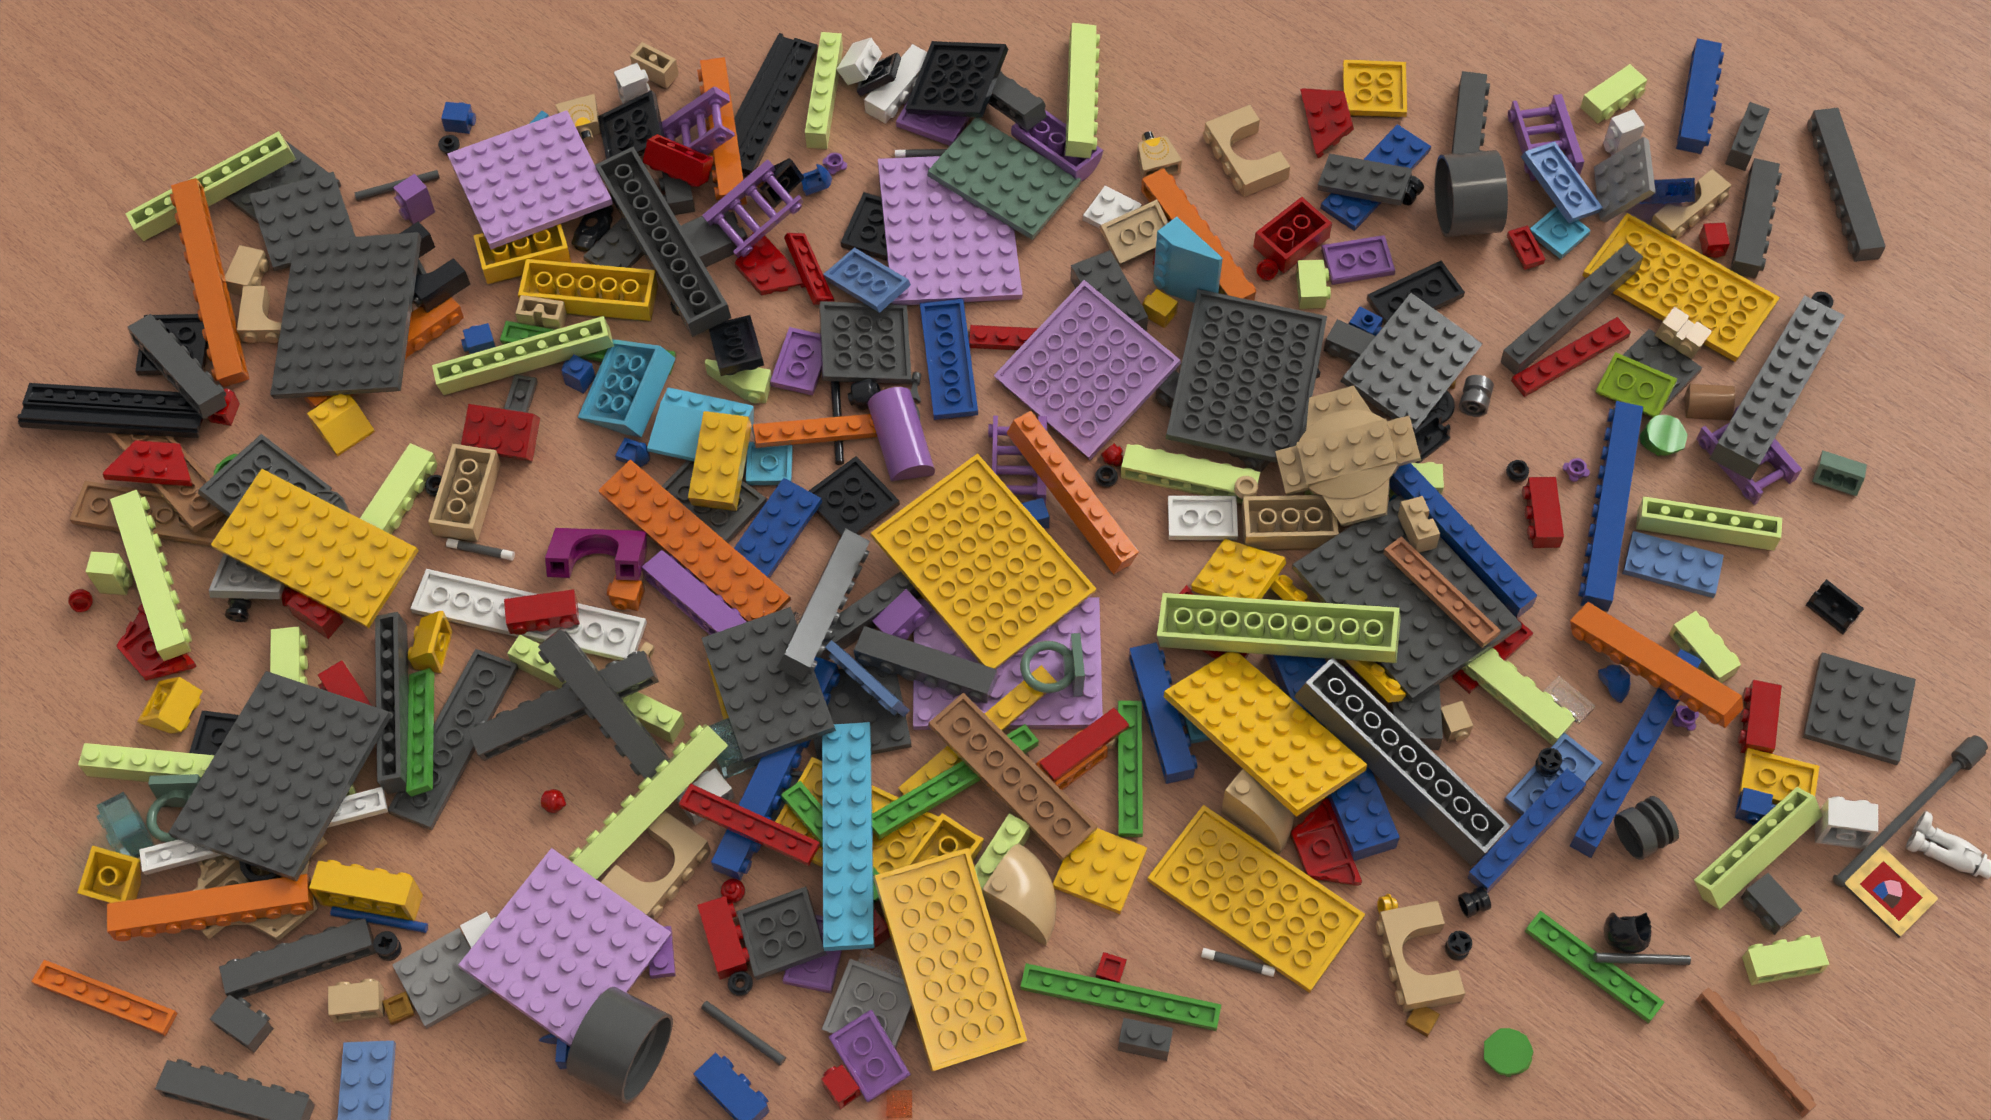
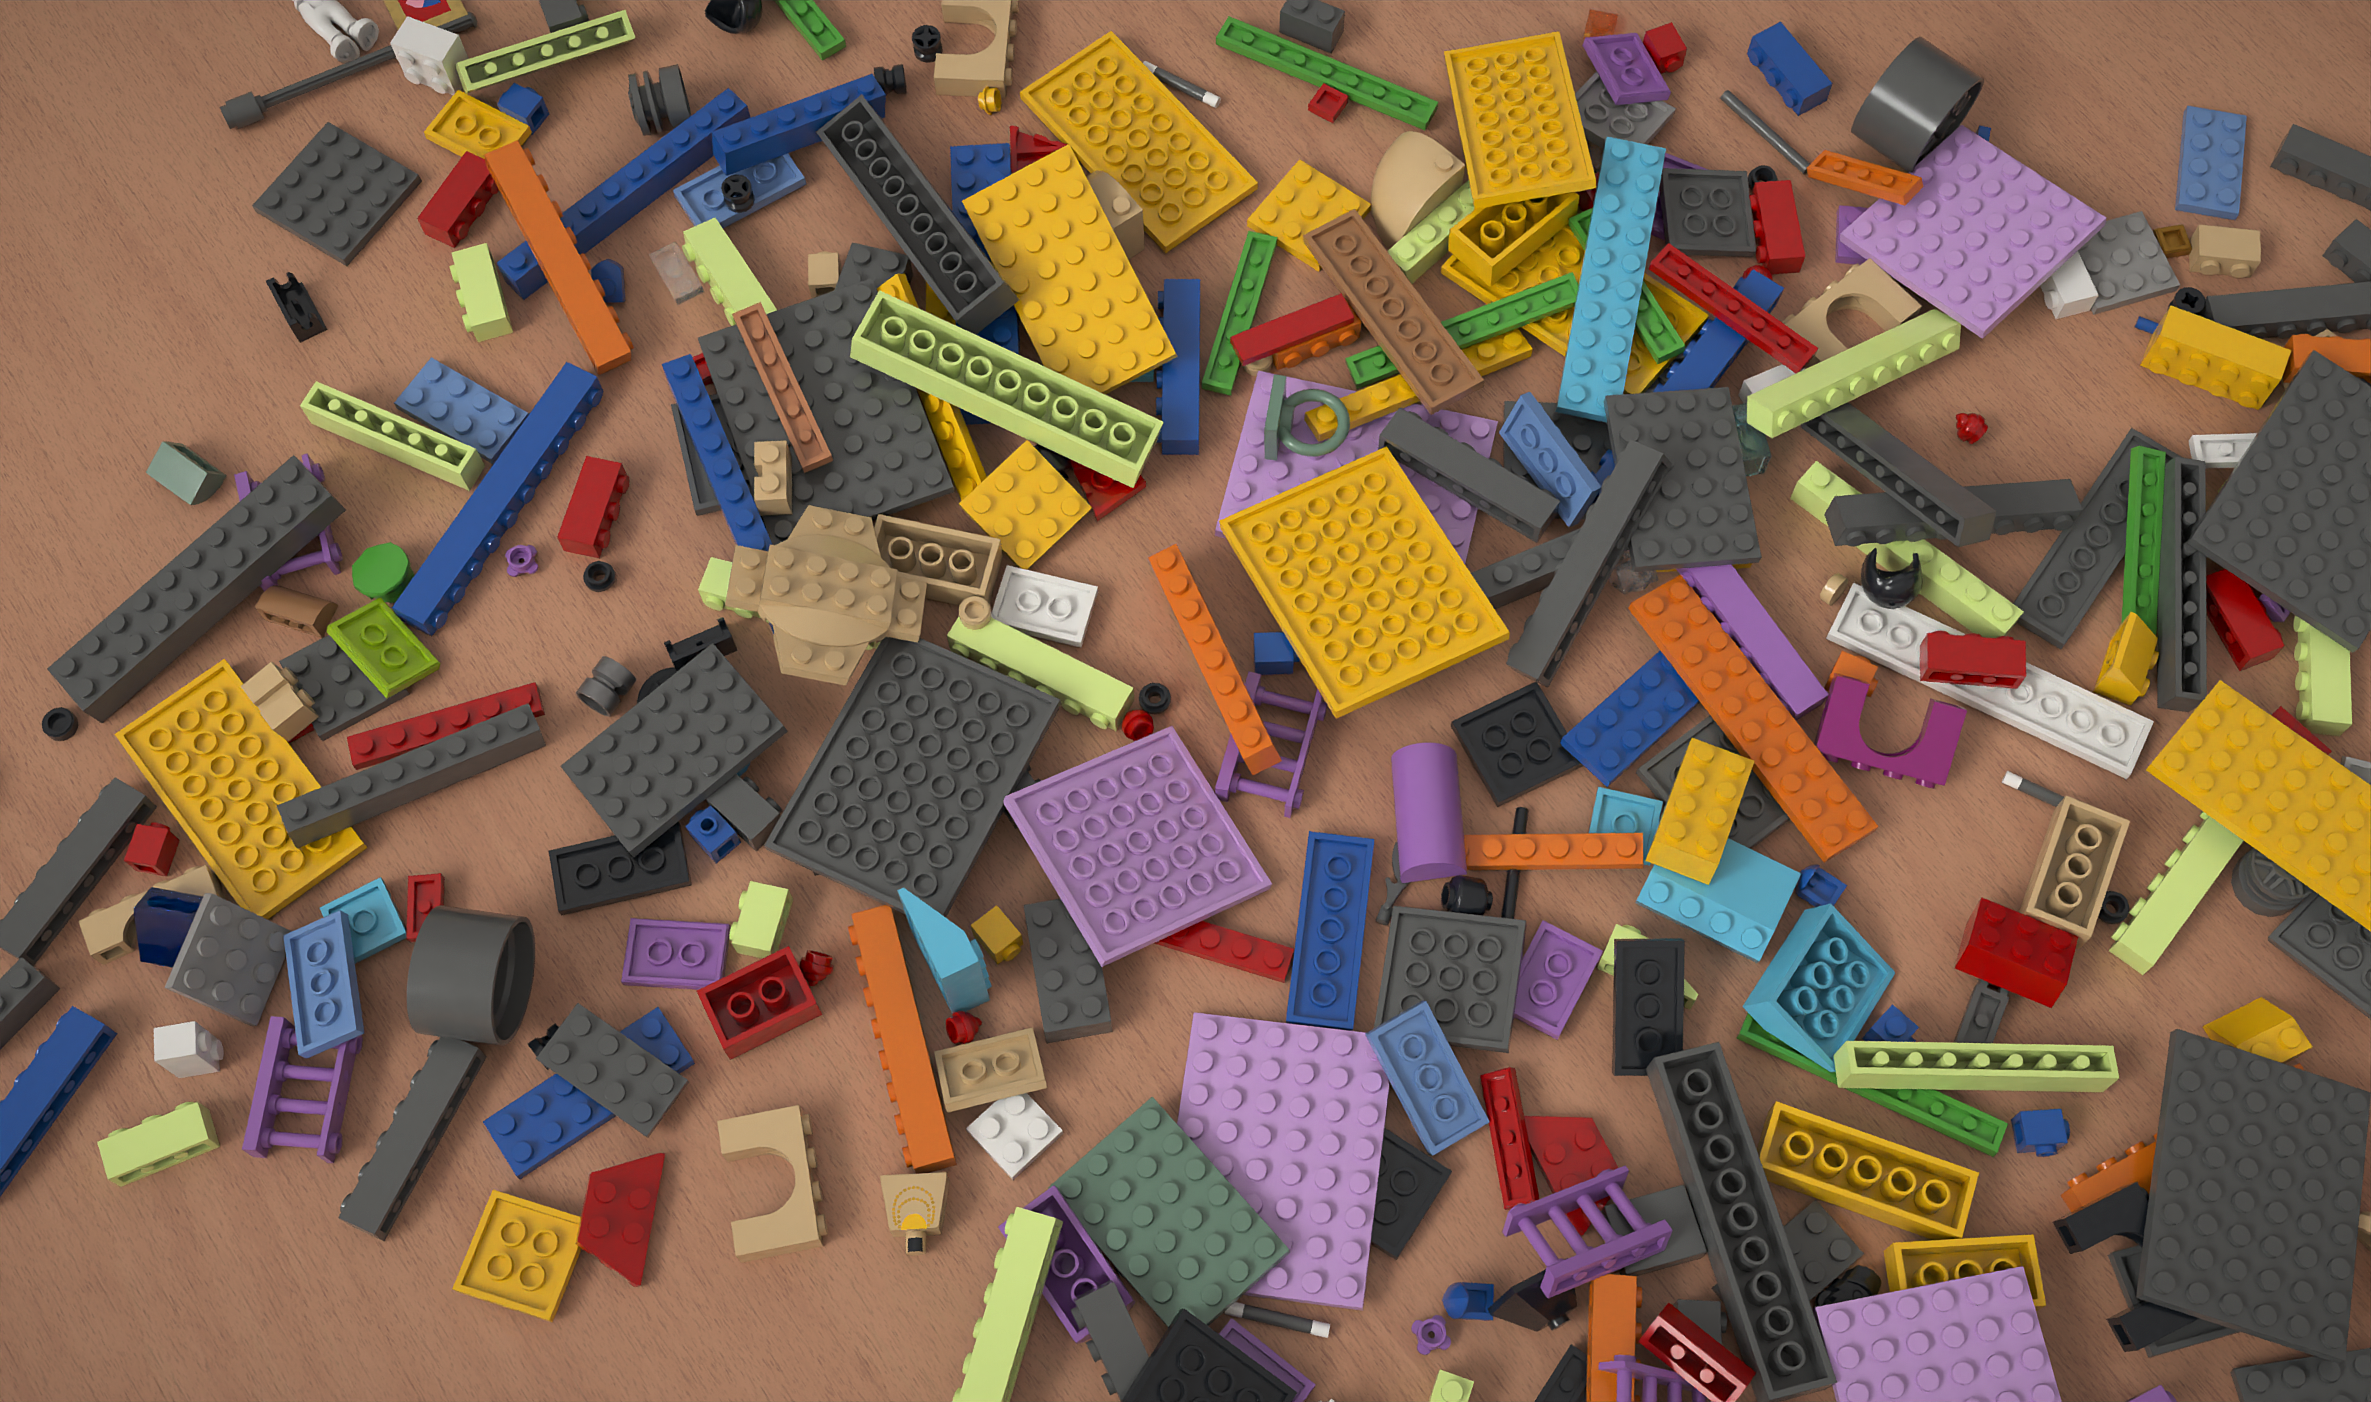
camera: 165 degrees left, 5 degrees up
(541, 312) = (1926, 1136): tan brick -> none
(605, 646) = (1891, 588): none -> black piece
(657, 983) = (1865, 177): none -> orange plate
(902, 616) = (1487, 544): medium lavender brick -> none

